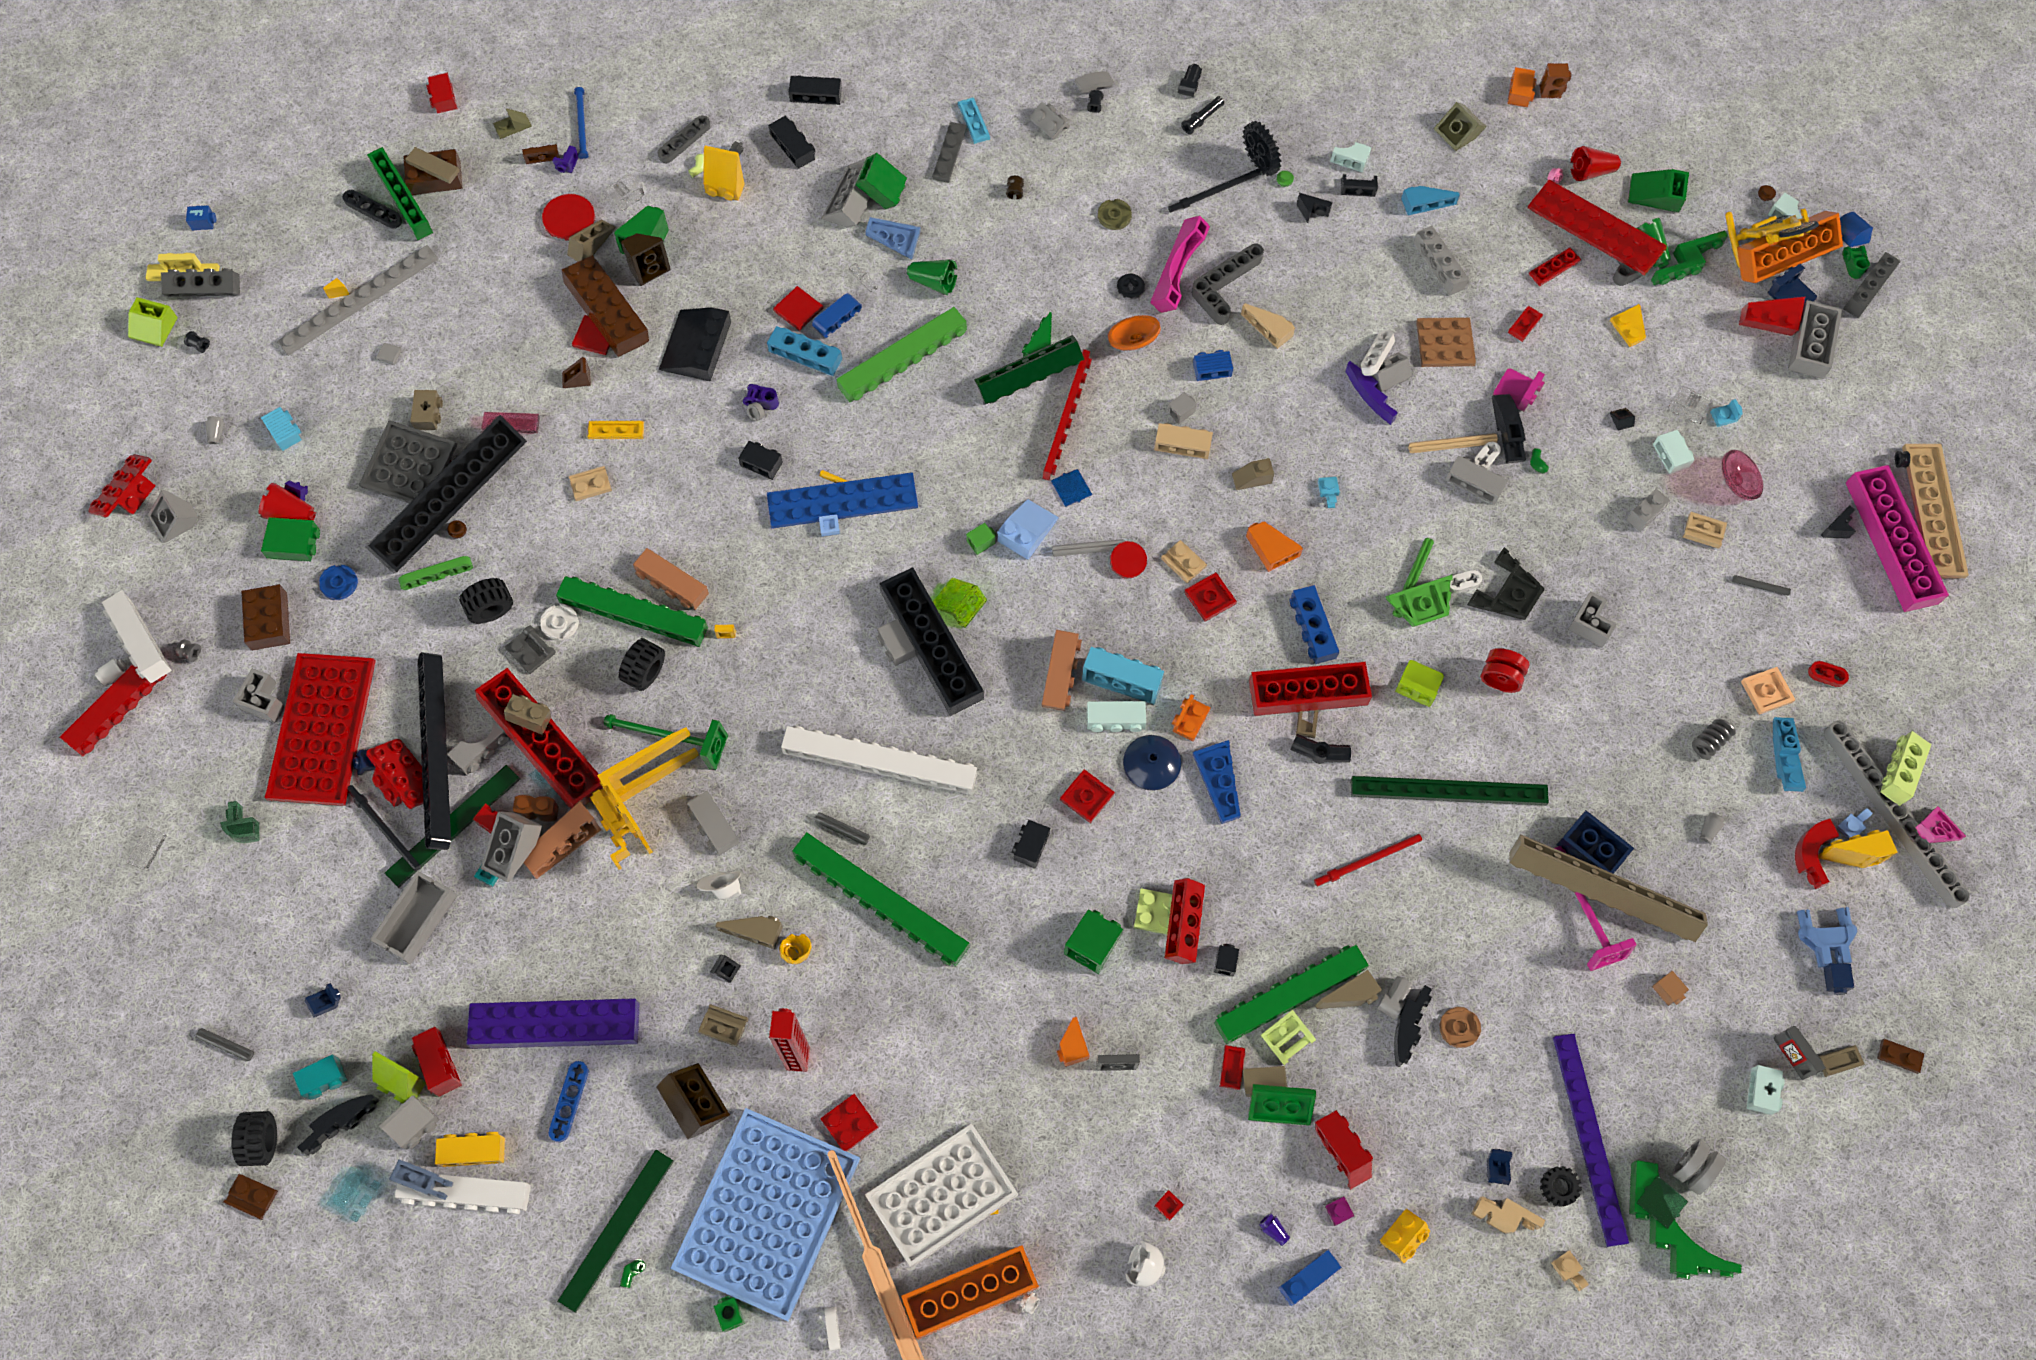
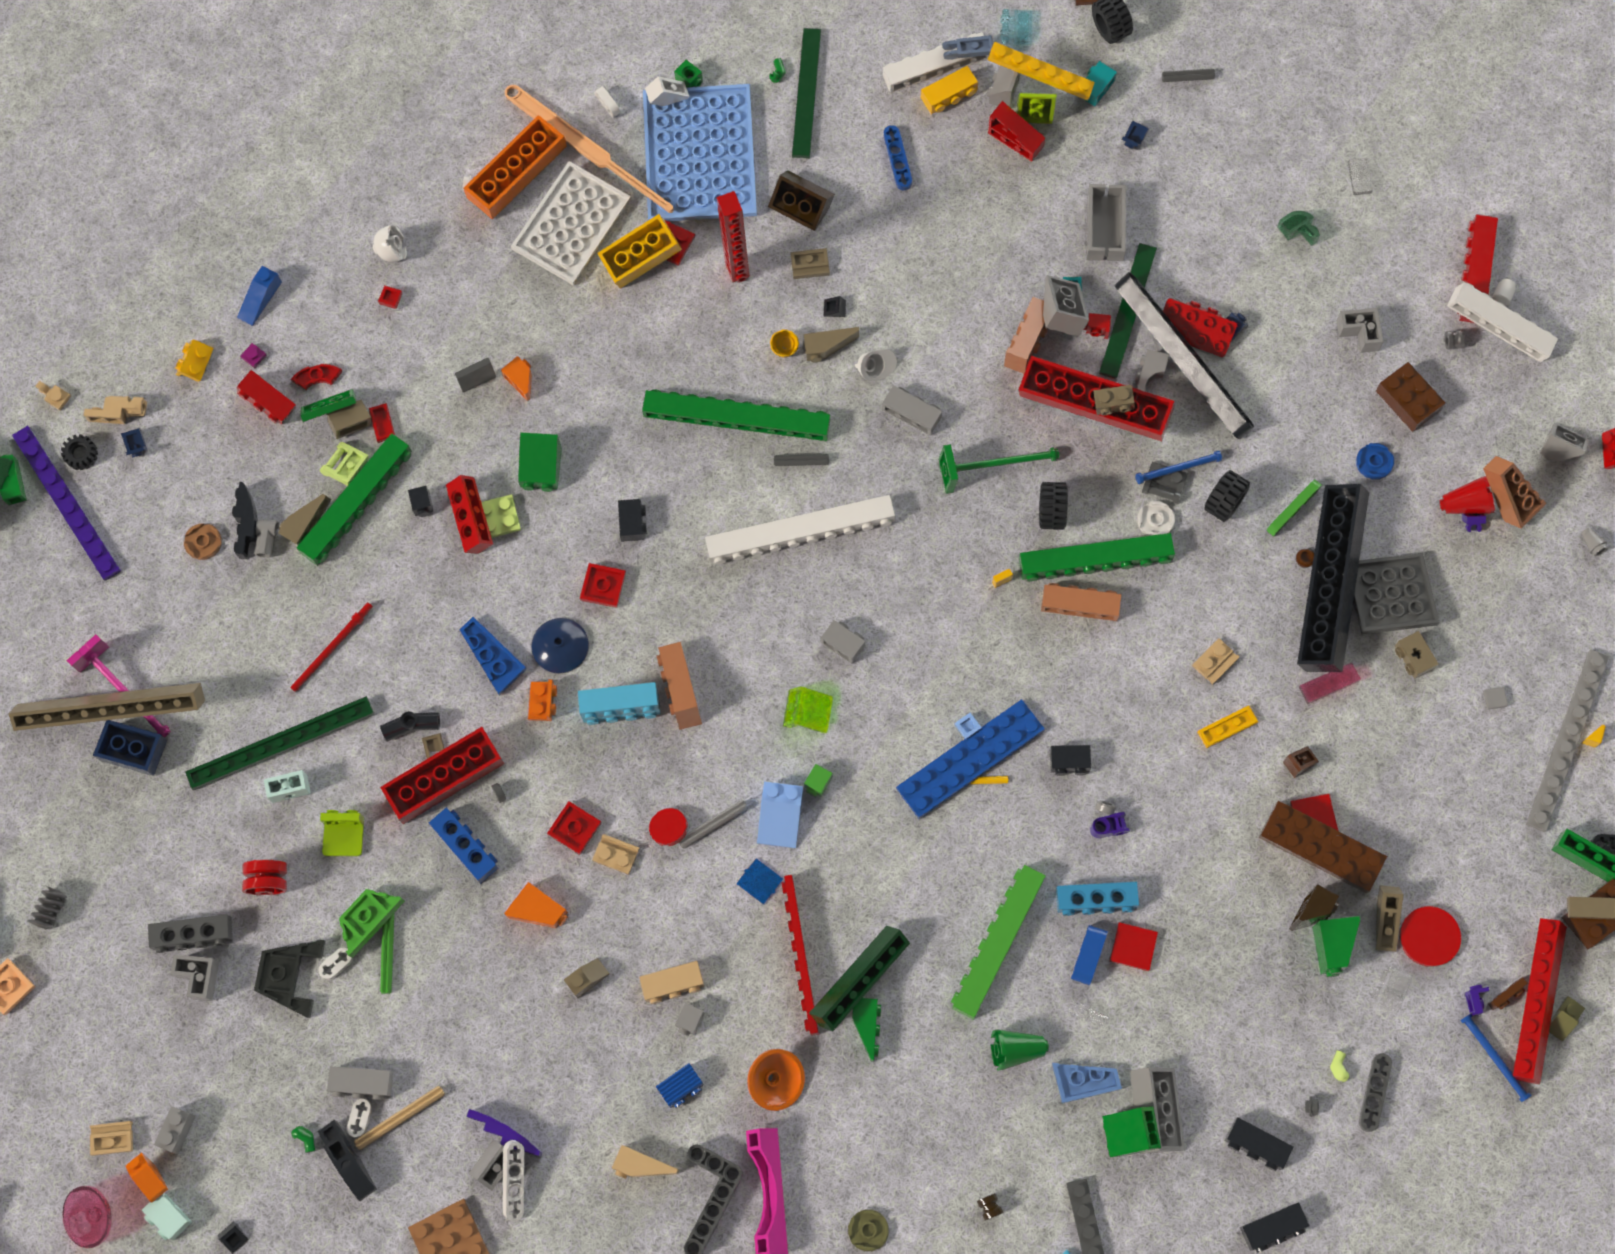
camera: 160 degrees right, 5 degrees up
(250, 483) = (1512, 493): none -> nougat wedge
(281, 428) = (1534, 572): medium azure brick -> none
(290, 539) = (1443, 473): green brick -> none
(320, 729) = (1293, 332): red plate -> none
(345, 1115) = (1067, 57): black slope -> none
(362, 802) = (1215, 292): black bar -> none
(368, 1104) = (1040, 71): none -> yellow plate
(521, 137) = (1539, 1001): none -> red brick
(533, 808) = (1071, 350): dark orange brick -> none
(549, 654) = (1140, 478): none -> blue bar
(553, 1023) = (943, 201): dark purple brick -> none
(615, 793) = (993, 361): yellow piece -> none
(696, 342) = (1210, 854): black slope -> none
(722, 173) = (1299, 1052): yellow slope -> none
(764, 1297) = (666, 91): none -> white slope
(887, 1116) = (639, 251): none -> yellow brick
(932, 641) = (811, 655): black brick -> none
(1116, 716) = (610, 667): light aqua brick -> none
(1137, 284) = (818, 1146): black gear -> none
(1264, 654) = (498, 792): none -> dark grey tile
(1273, 1228) = (301, 318): dark purple cone -> none
(1280, 1156) = (316, 374): none -> red tile
(1329, 488) = (506, 1002): medium azure plate -> none
(1456, 743) = (287, 786): none -> light aqua brick
(1520, 387) = (351, 1217): dark pink bracket -> none
(1576, 663) = (159, 932): none -> dark grey brick
(1671, 988) = (29, 654): medium nougat brick -> none
(1682, 481) = (146, 1177): none -> orange slope
(1712, 825) = (28, 821): light grey cone -> none
(1761, 585) = (39, 1104): dark grey bar -> none

